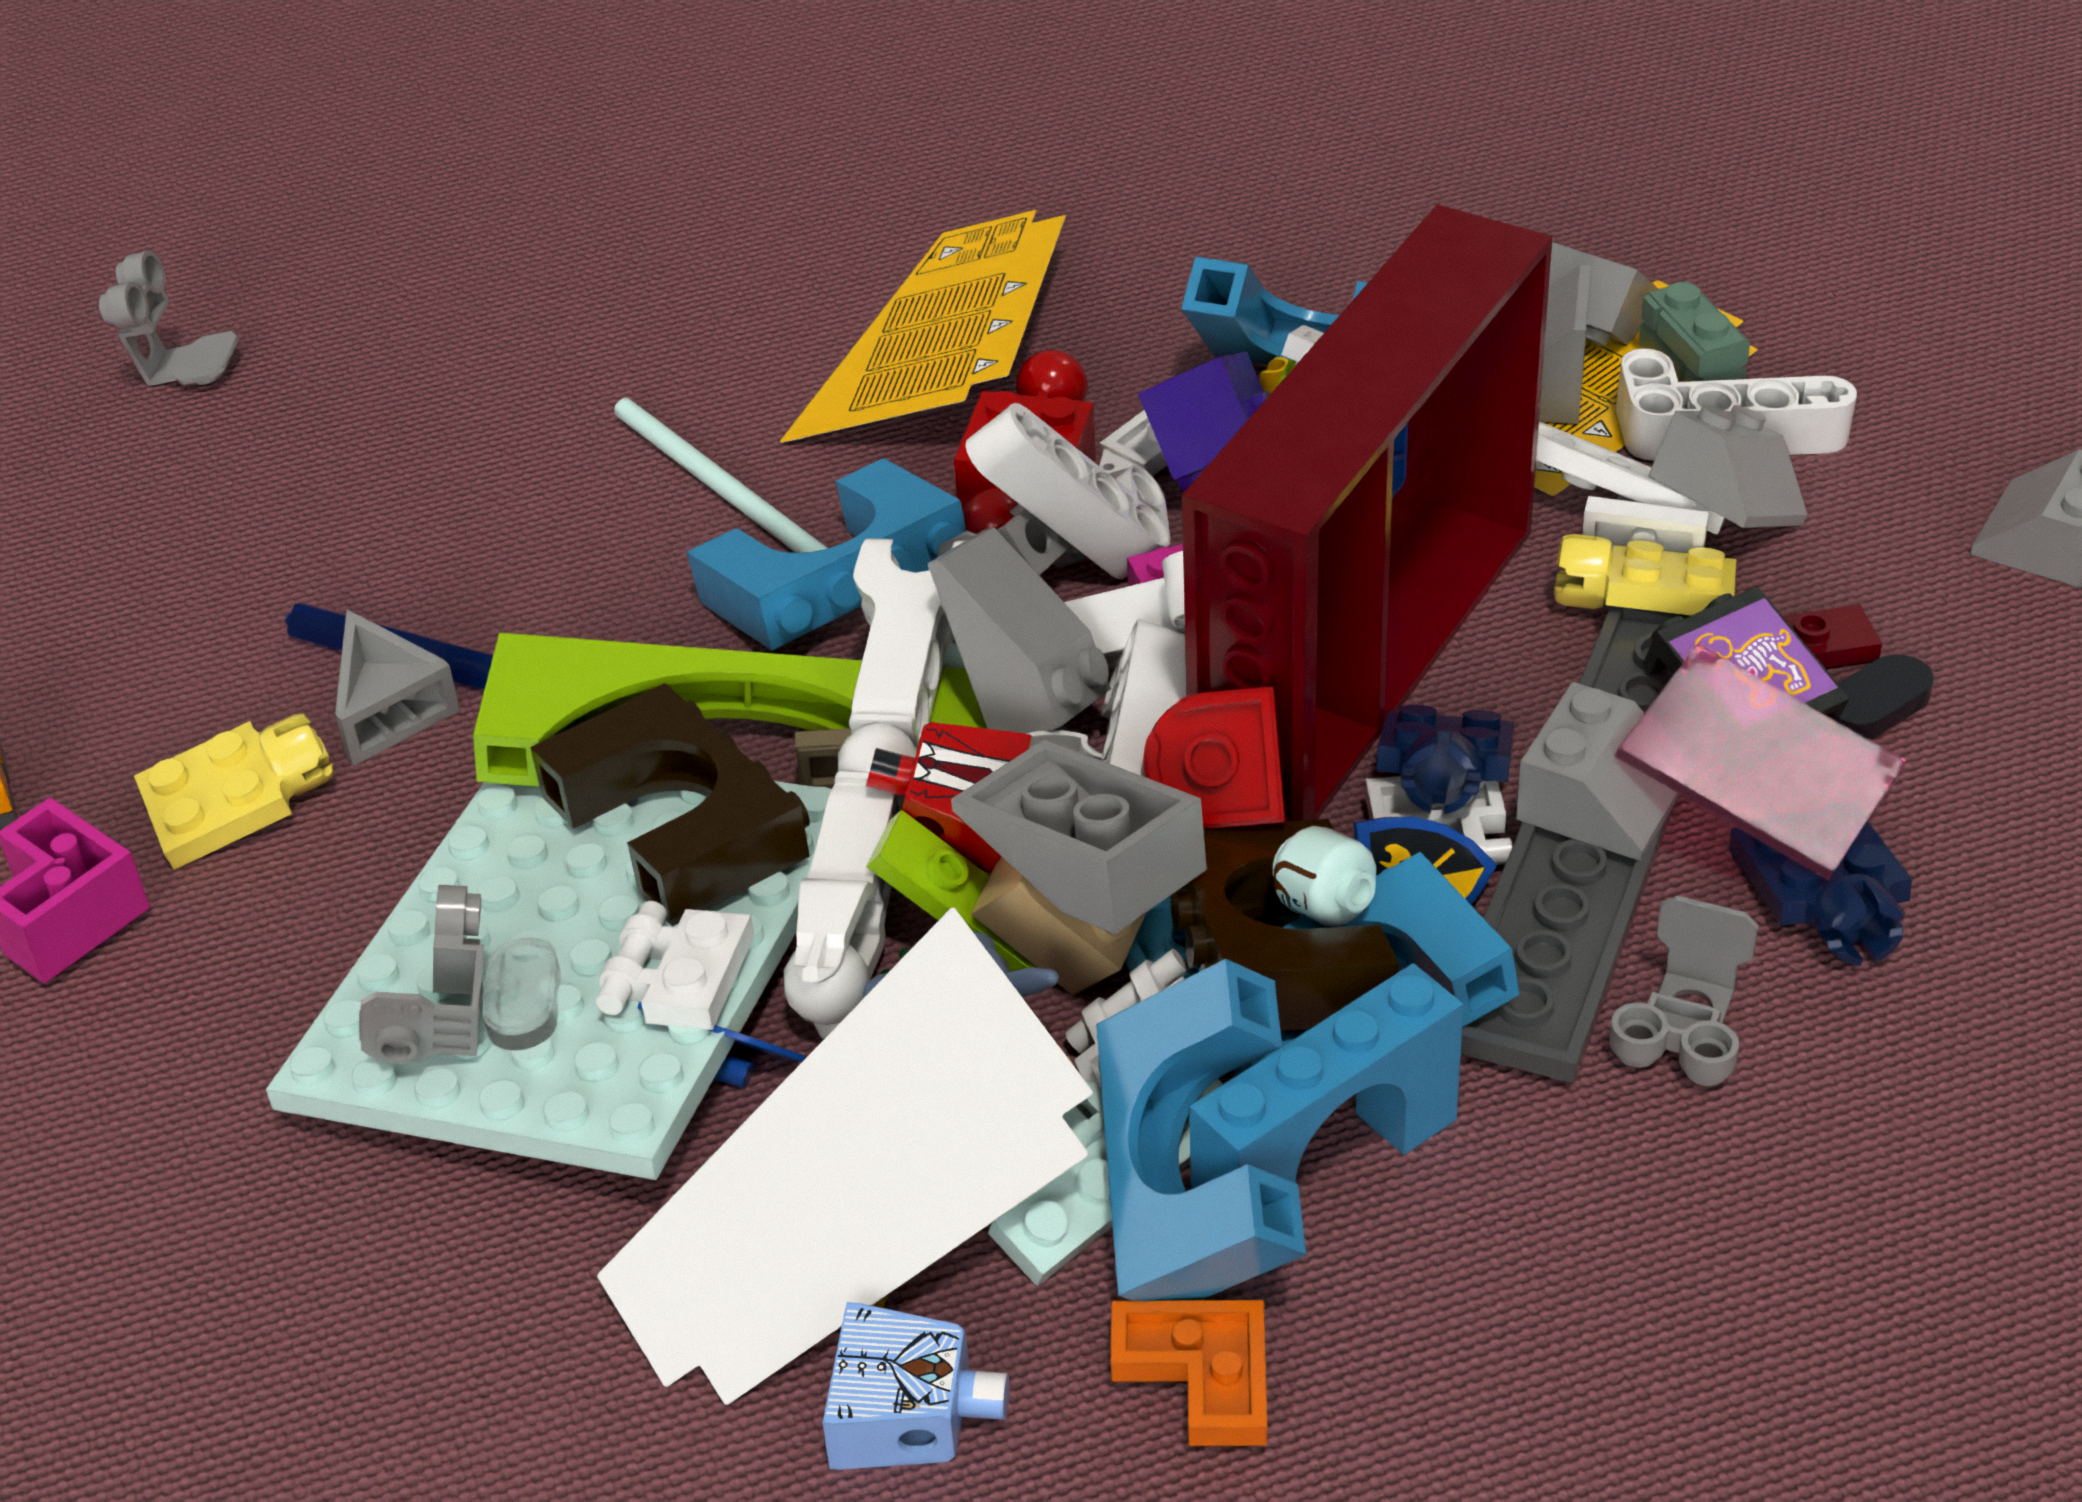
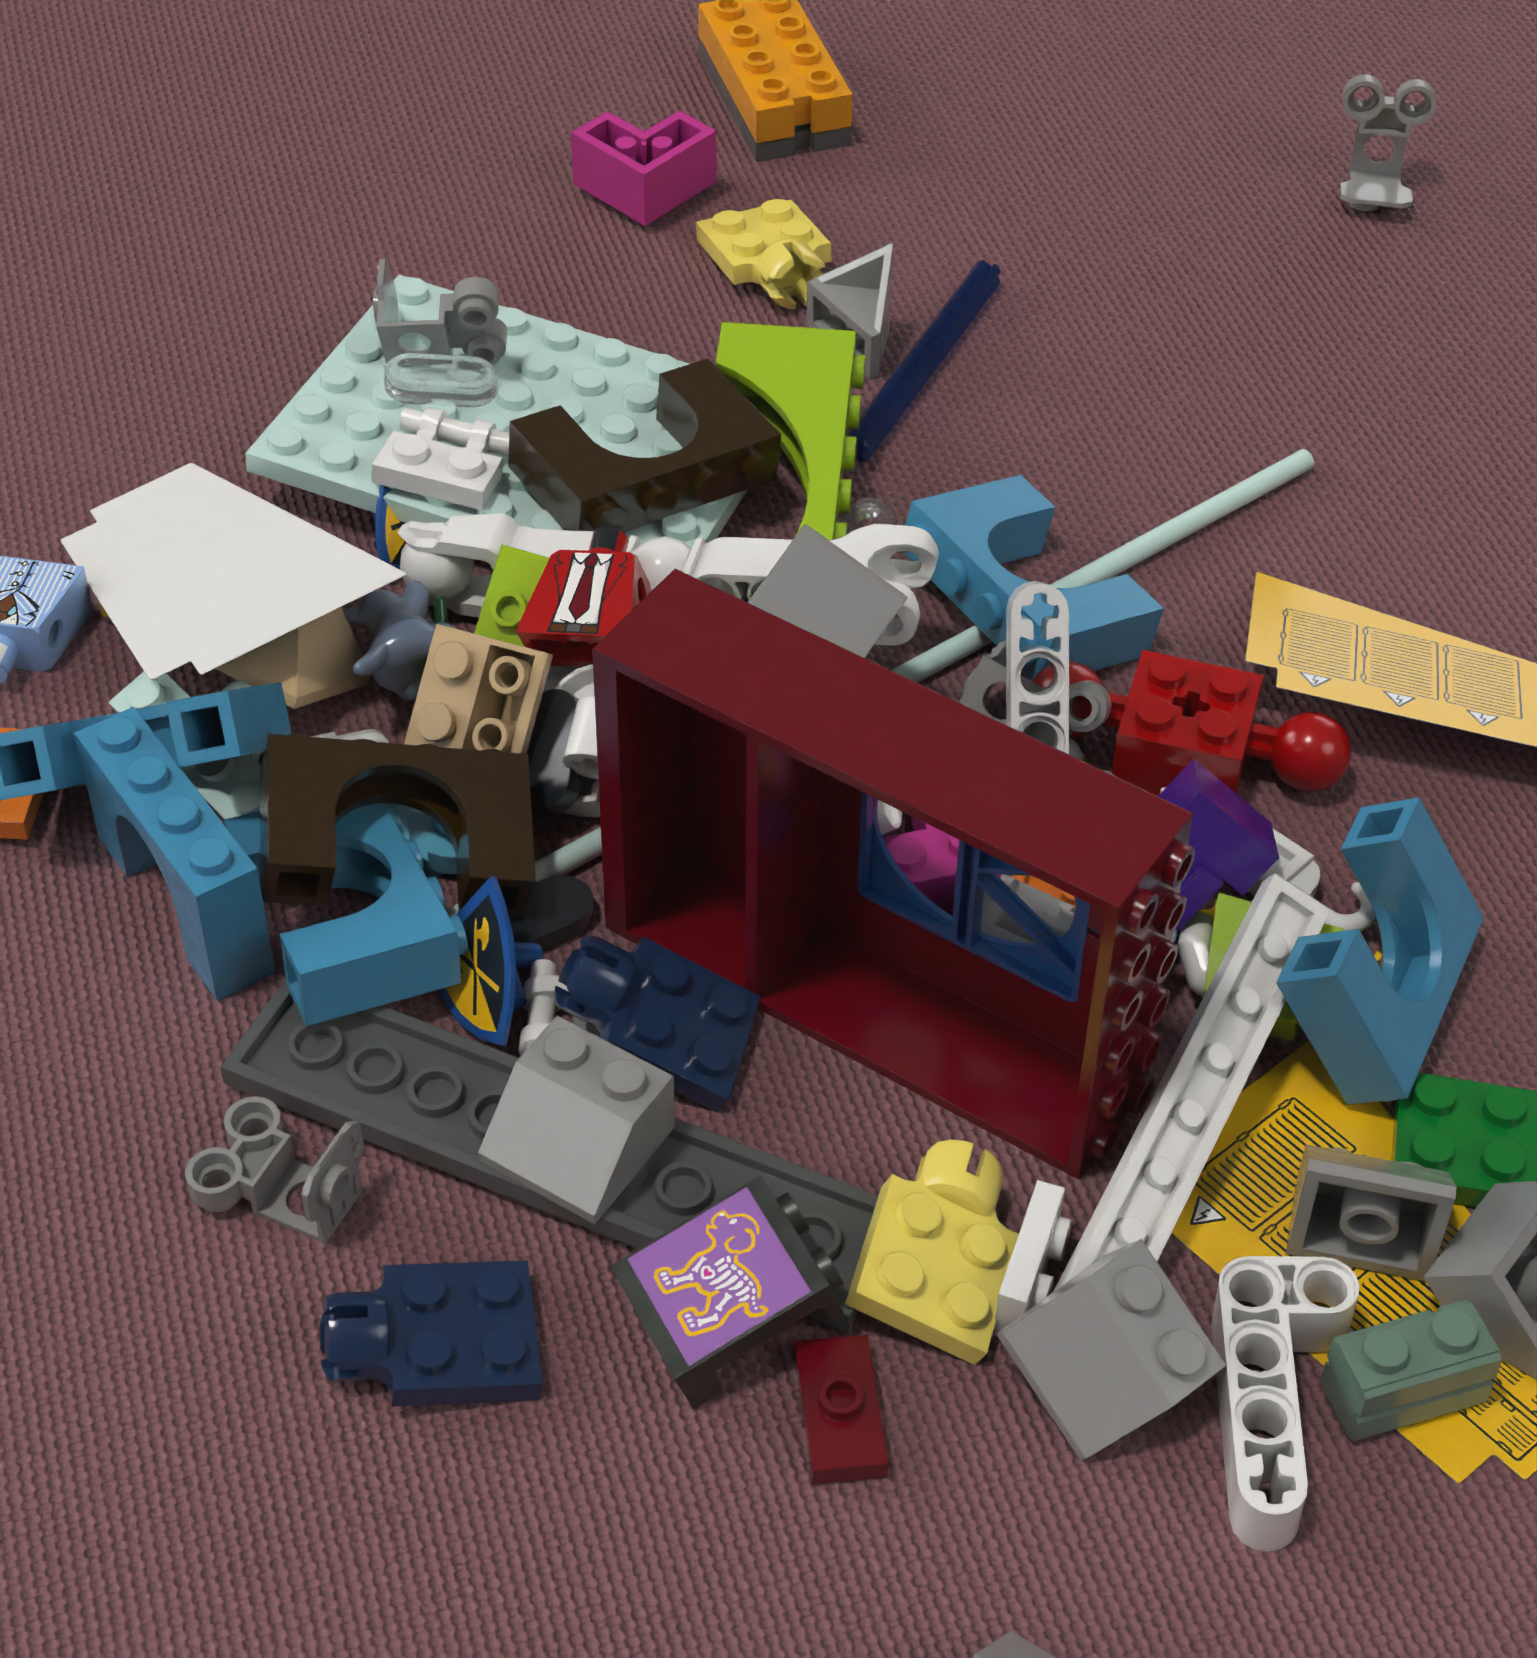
camera: 90 degrees right, 5 degrees up
(1088, 832) = (463, 648): light grey slope -> none
(1224, 753) = (561, 778): red tile -> none
(1324, 875) = (417, 841): light aqua head -> none
(1761, 760) = (560, 1255): clear pink piece -> none
(1885, 694) = (732, 1457): black tile -> none

